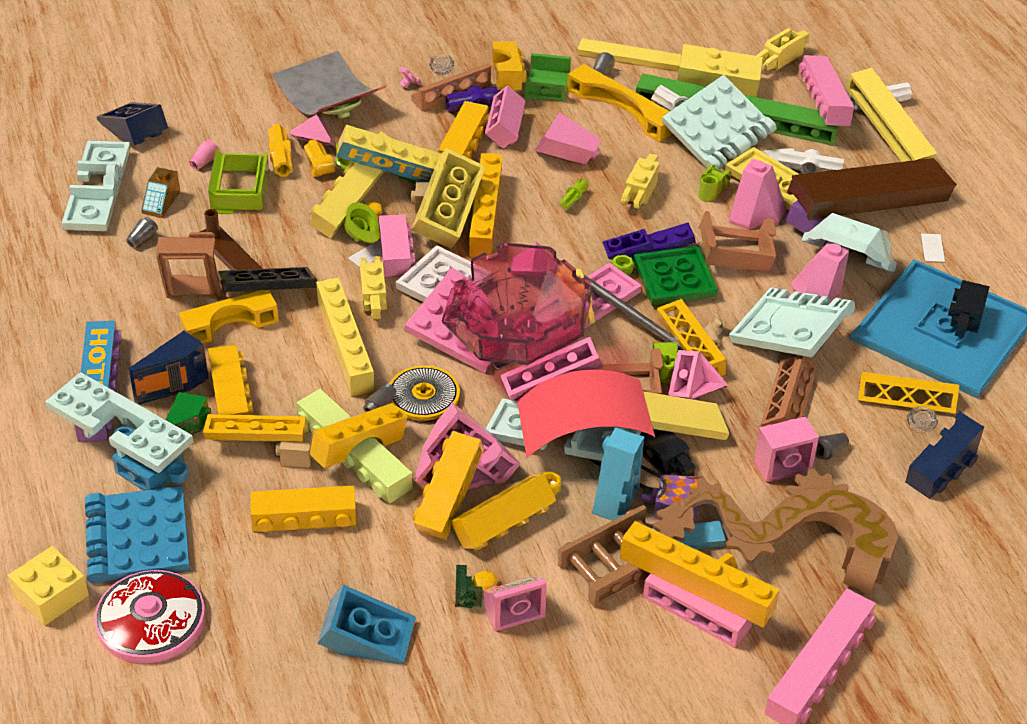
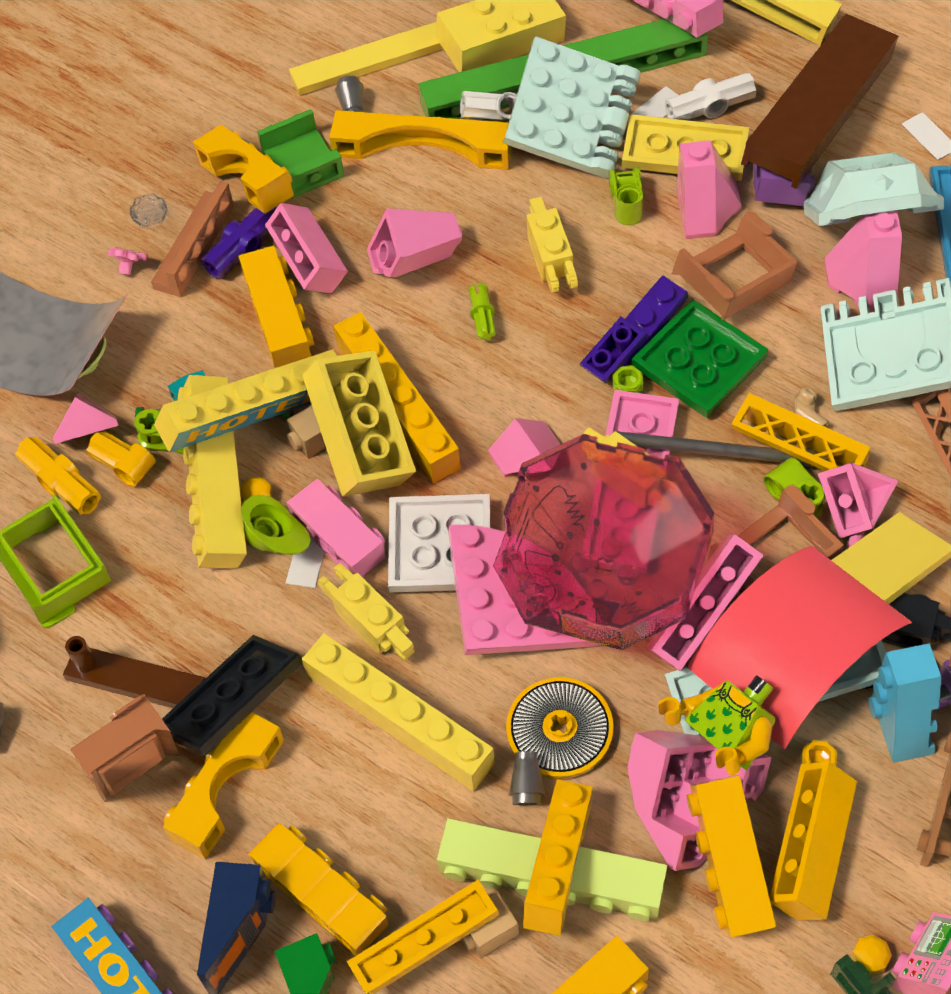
camera: 30 degrees left, 15 degrees up
(504, 424) = (728, 720): none -> torso

